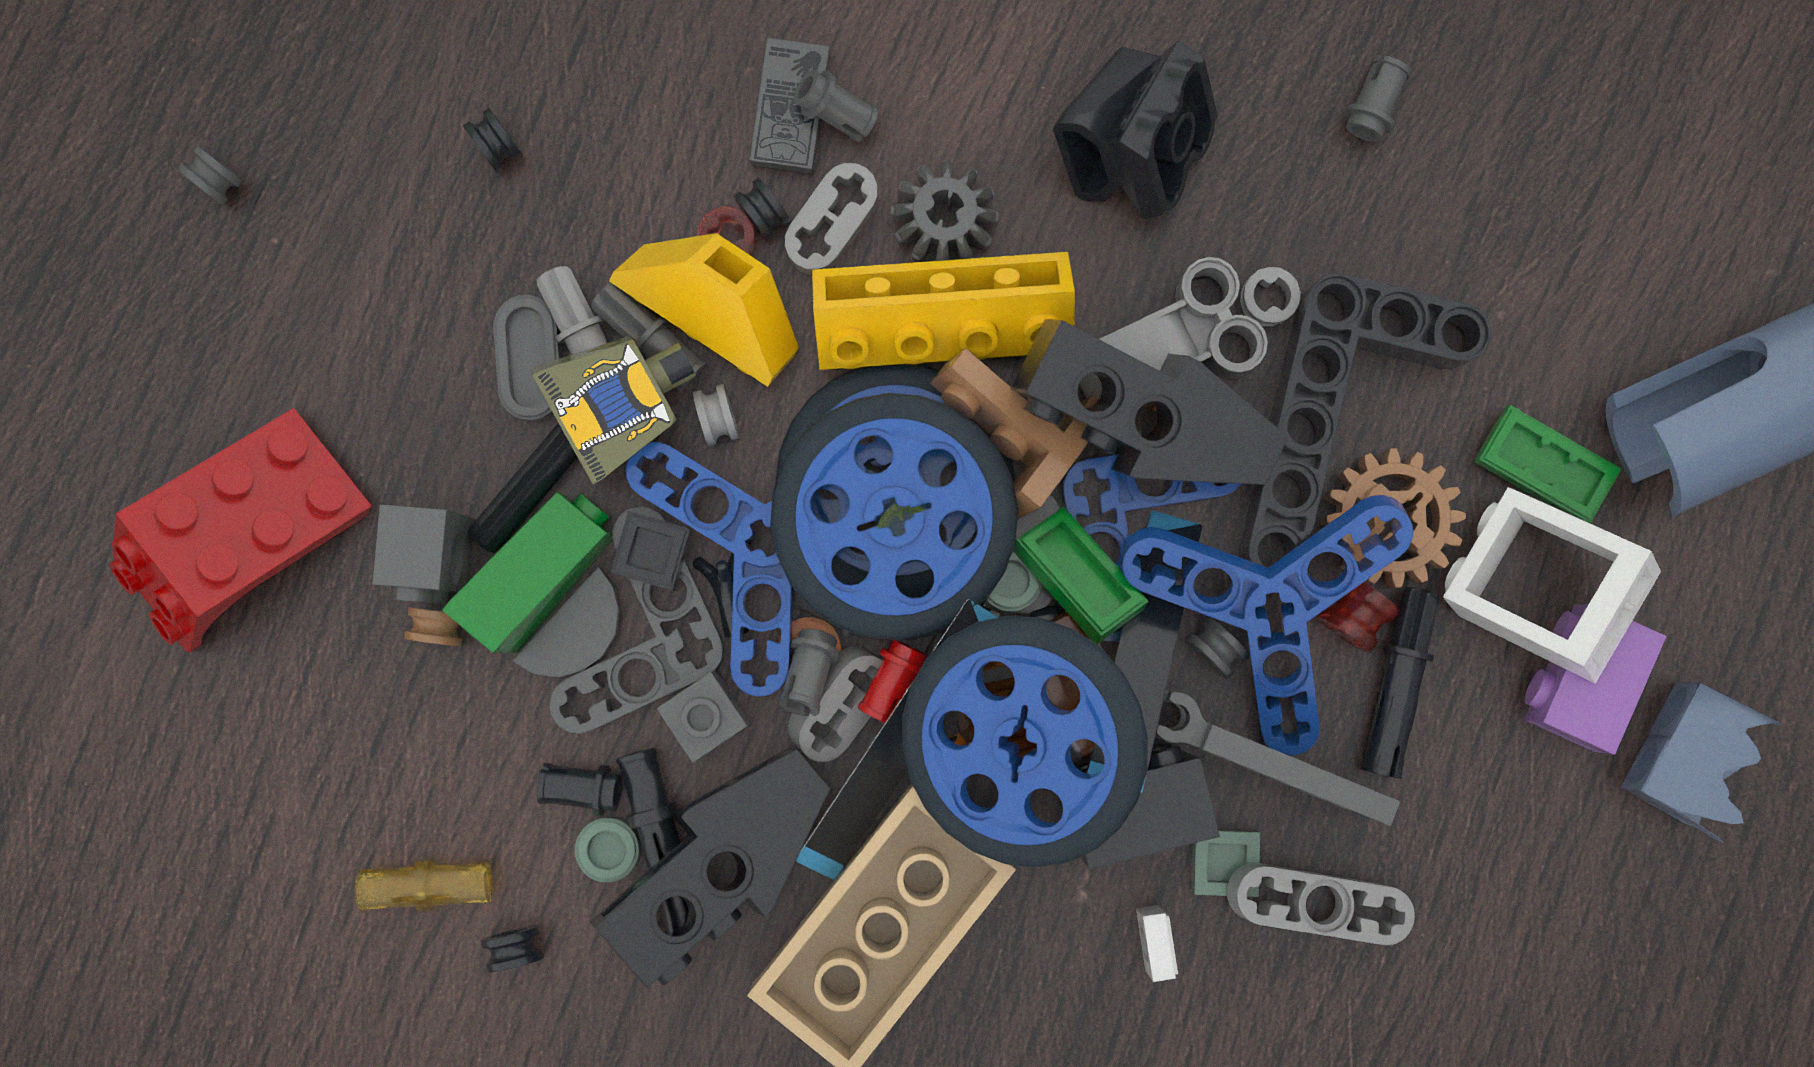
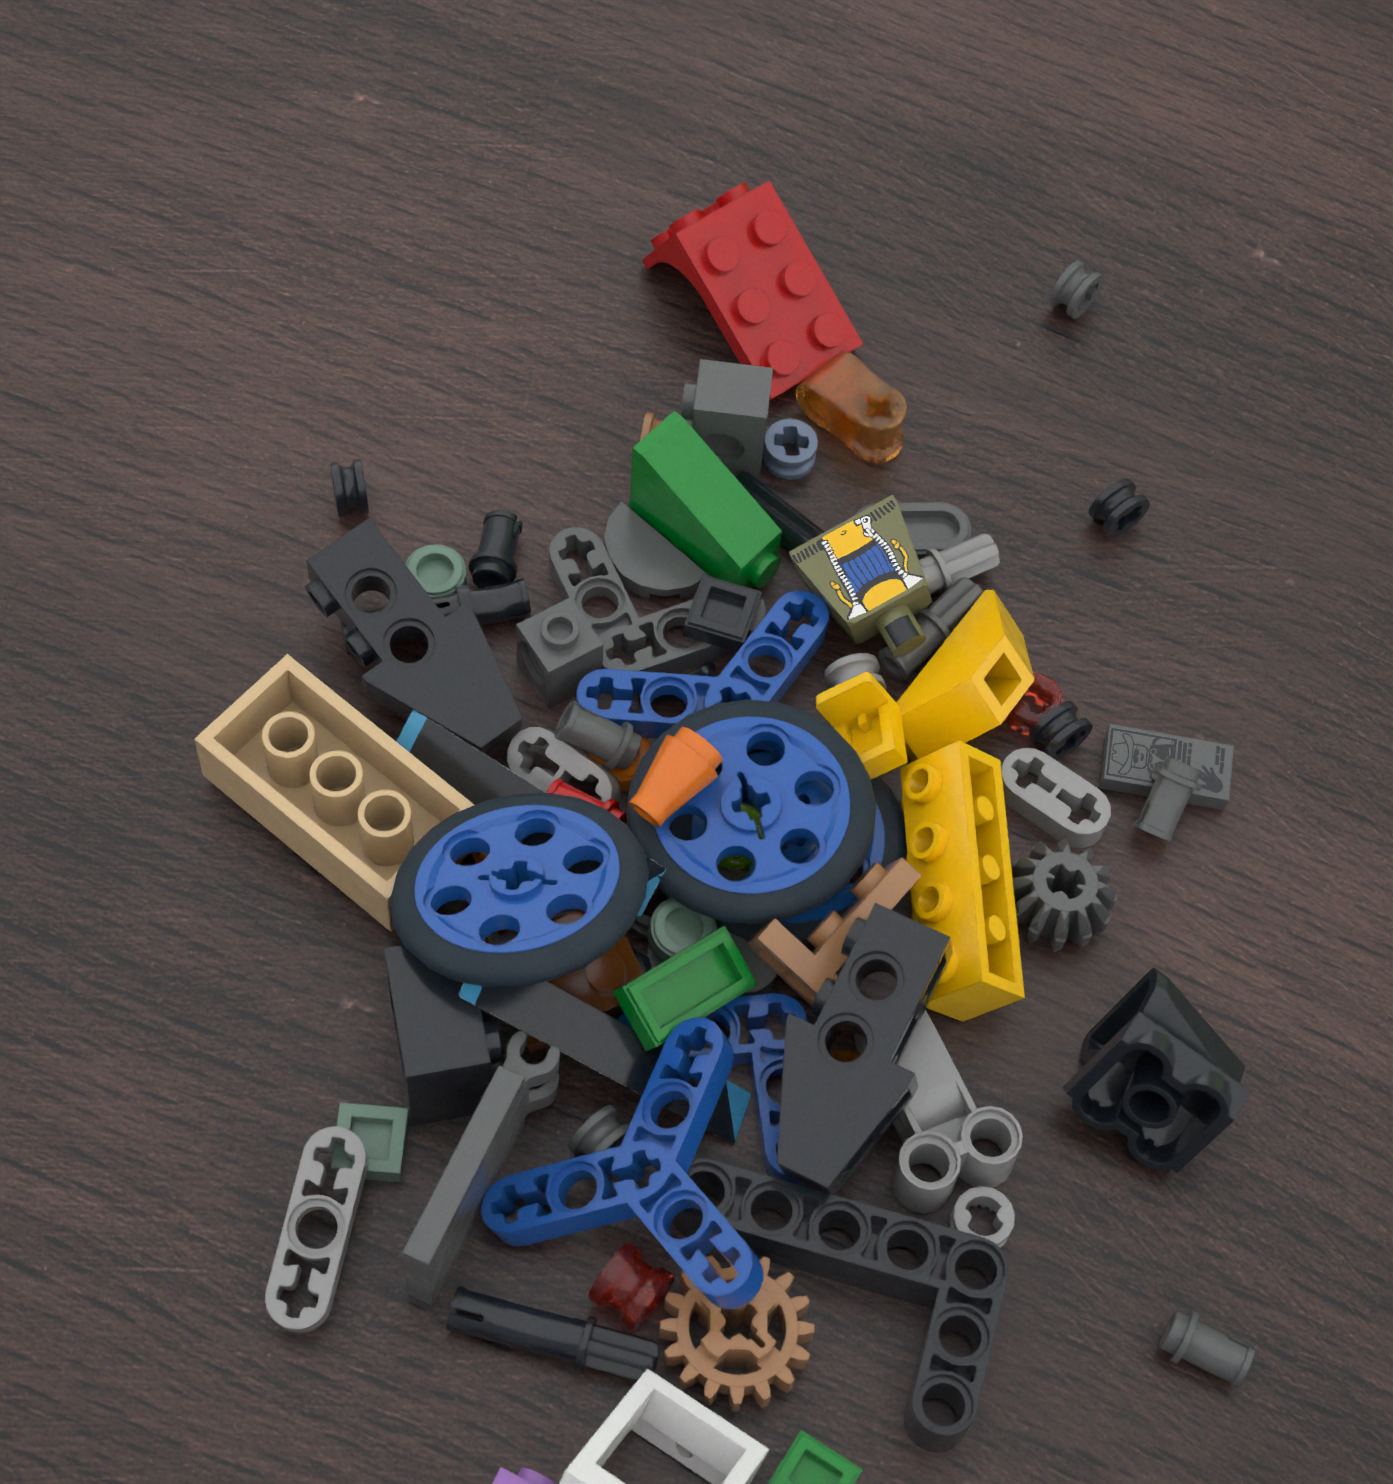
camera: 85 degrees right, 25 degrees down
(371, 425) = (855, 407): none -> clear orange piece
(420, 470) = (805, 443): none -> sand blue bush
(424, 886) = (414, 425): clear yellow pin -> none
(786, 402) = (867, 721): none -> yellow bracket
(877, 592) = (676, 775): none -> orange cone
(1157, 943) = (293, 1057): white tile -> none

